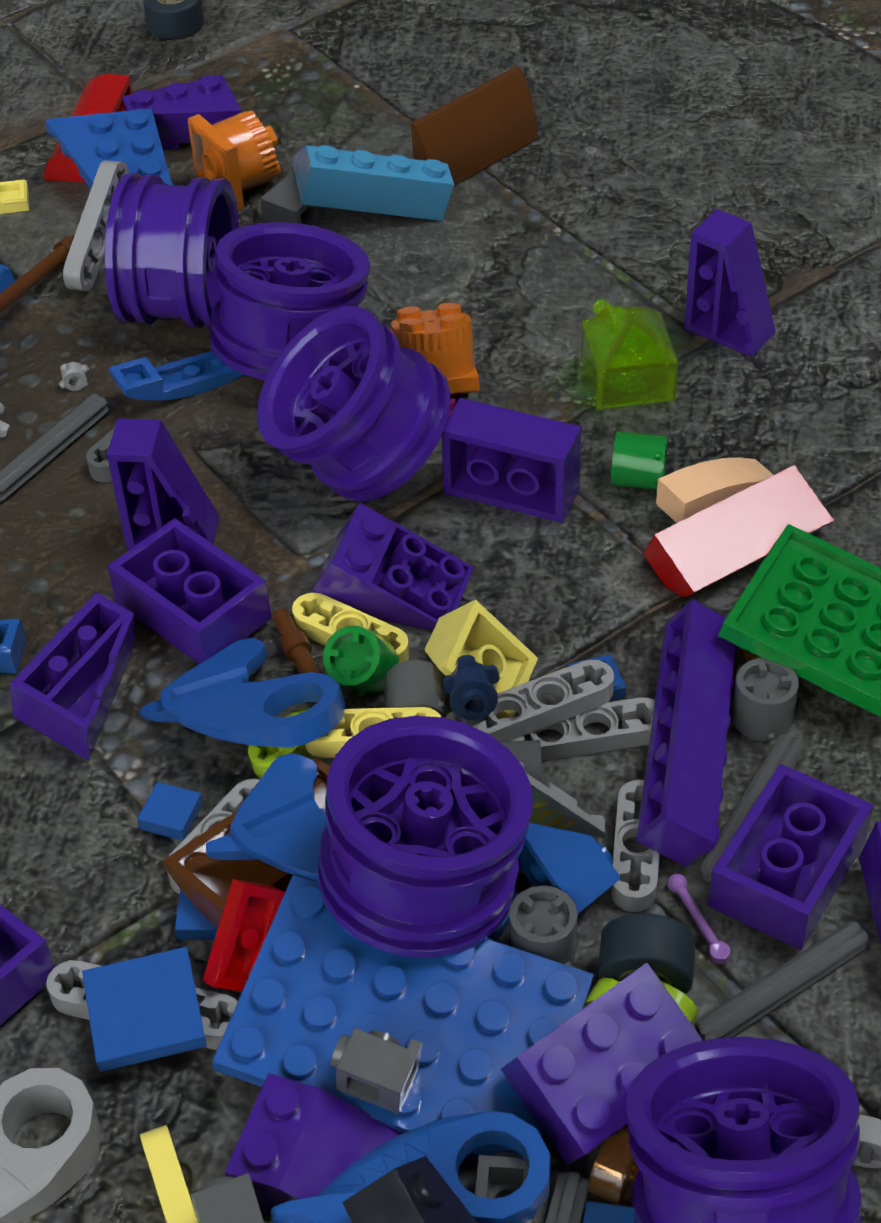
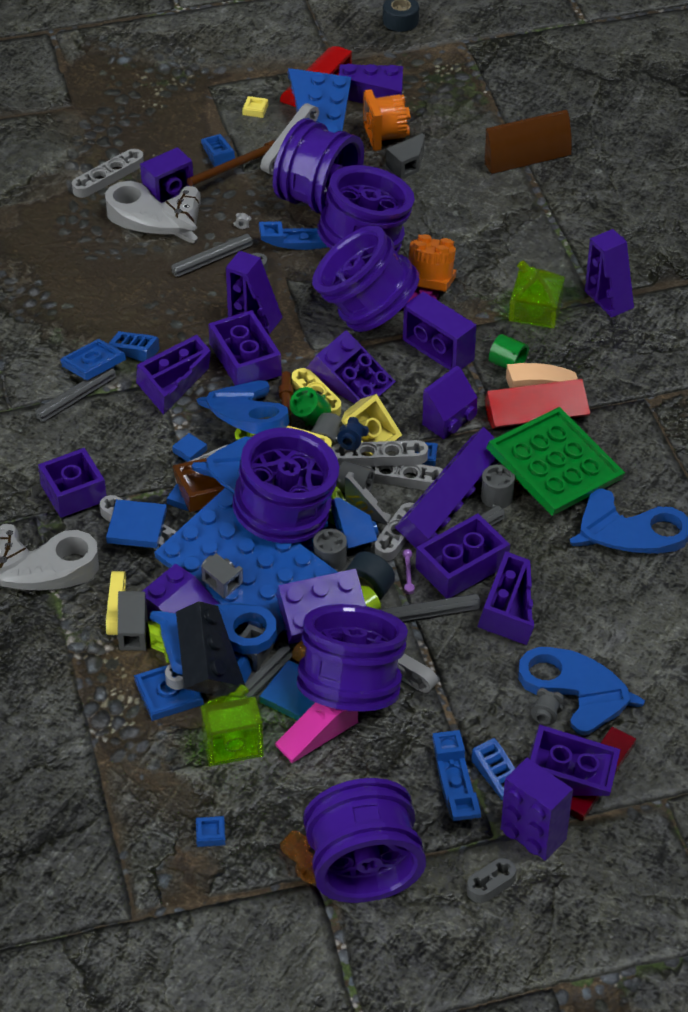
camera: 20 degrees right, 0 degrees up
(241, 933) = (192, 503): red plate -> none
(372, 182) = (452, 157): dark azure wedge -> none
(599, 578) = (448, 403): none -> dark purple slope

